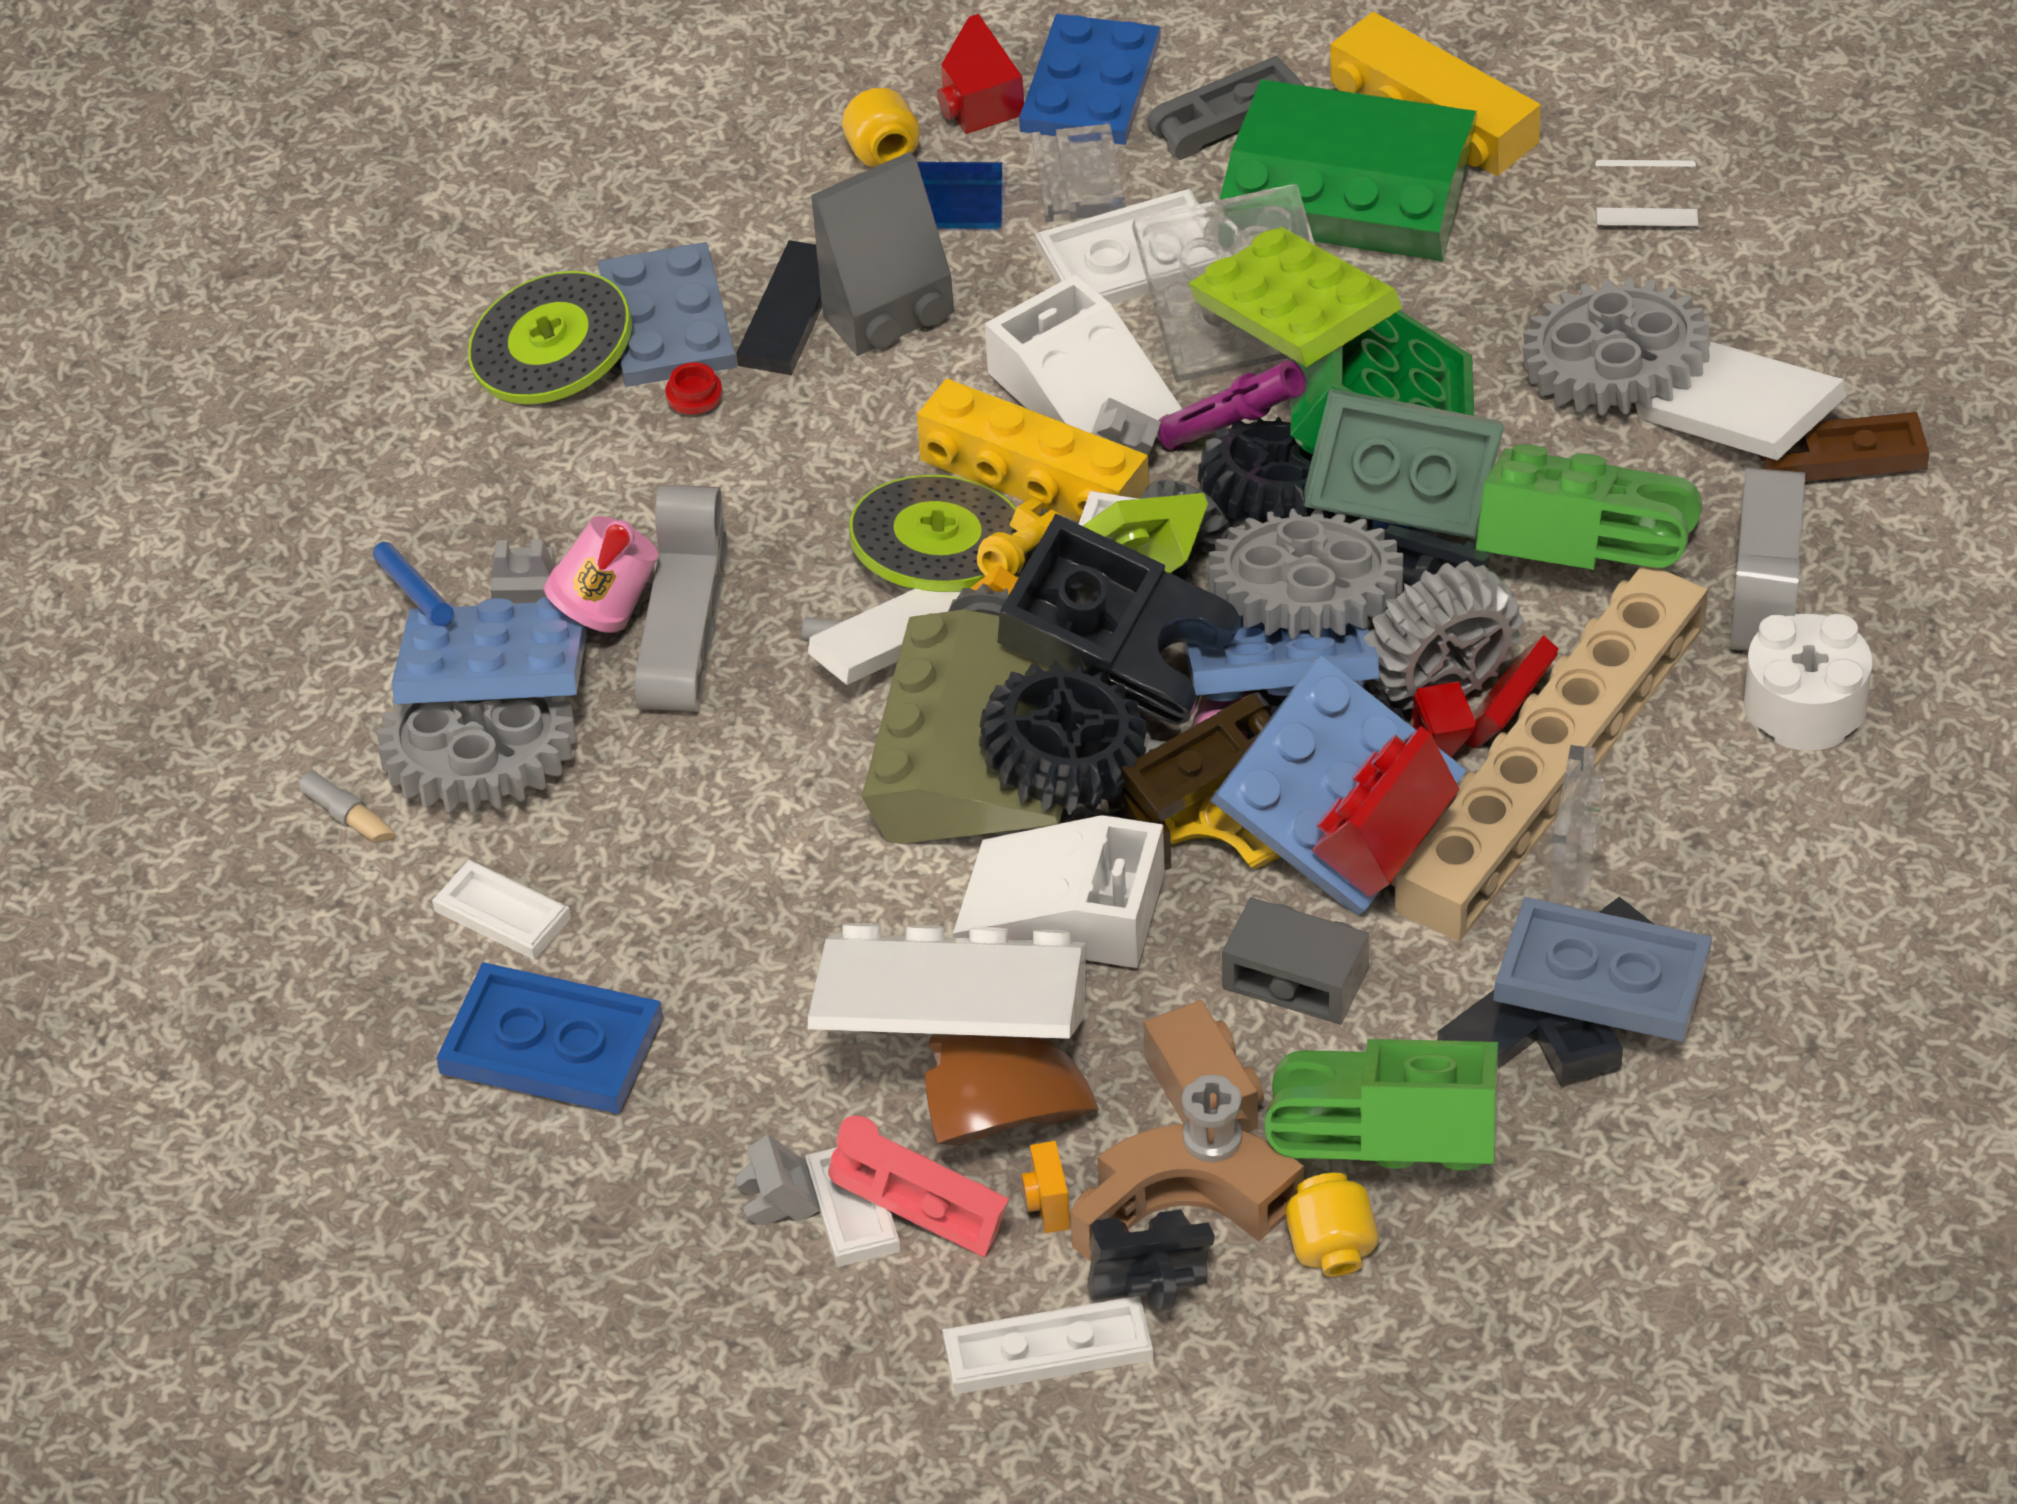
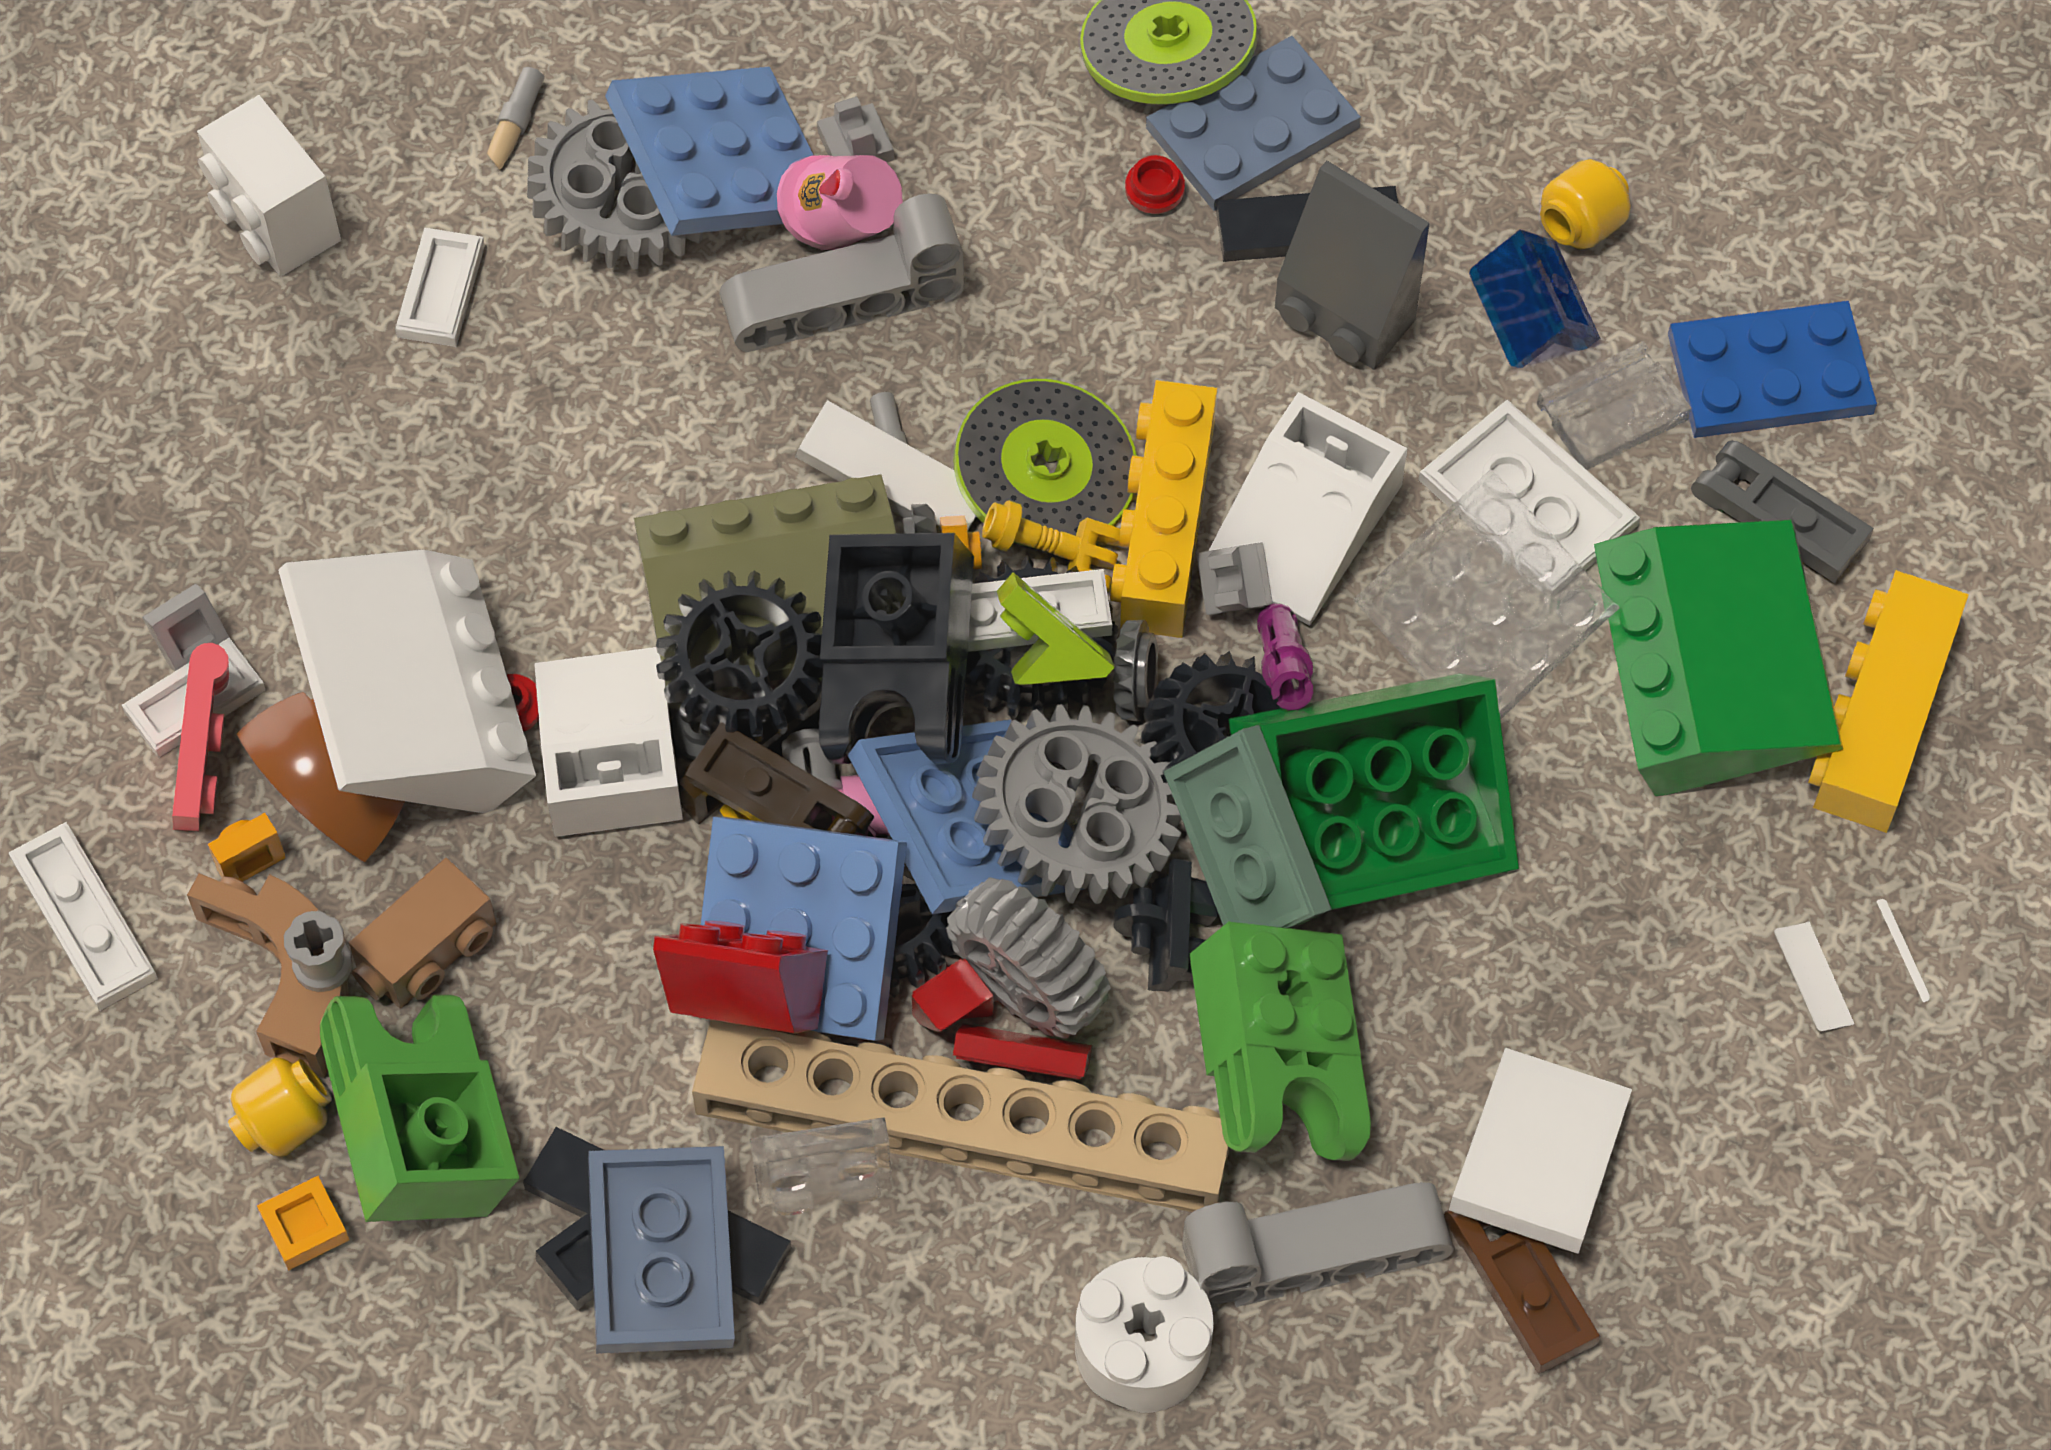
camera: 65 degrees right, 15 degrees up
(336, 981) = (267, 187): none -> white brick
(413, 583) = (784, 53): blue bar -> none
(550, 1037) = (294, 383): blue plate -> none
(979, 80) = (1706, 262): red slope -> none
(1148, 1261) = (167, 939): black hips -> none
(1294, 295) = (1423, 654): lime plate -> none
(1295, 960) = (595, 969): dark grey brick -> none
(1455, 1239) = (303, 1222): none -> light orange plate
(1616, 346) = (1633, 1022): light grey gear -> none

